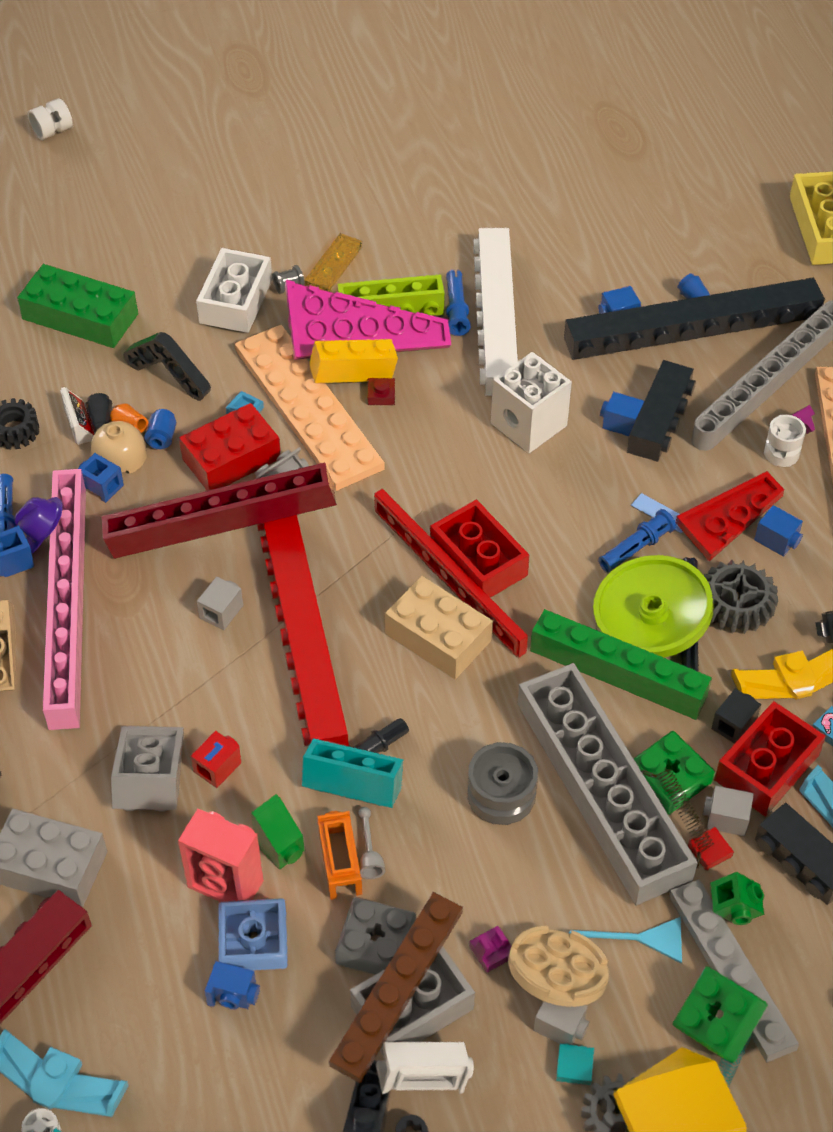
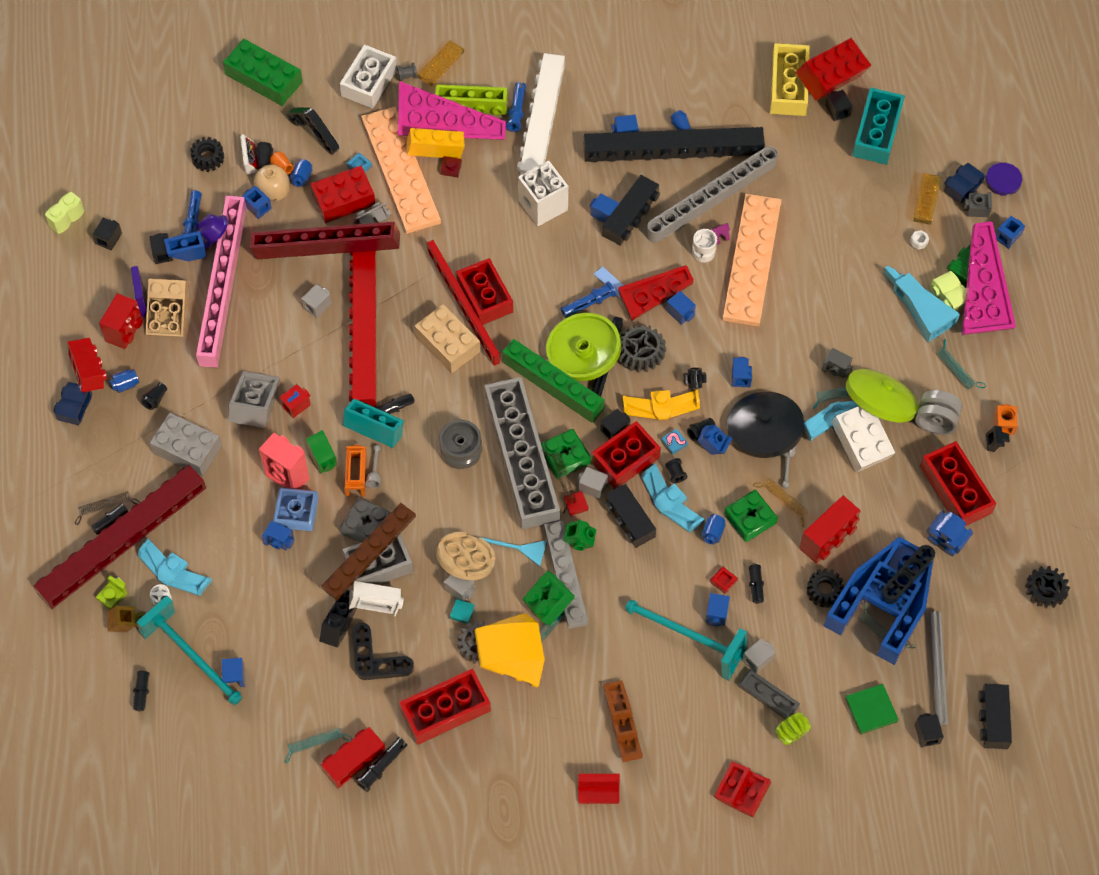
camera: 10 degrees right, 10 degrees up
(491, 948) = (431, 539): magenta tile -> none

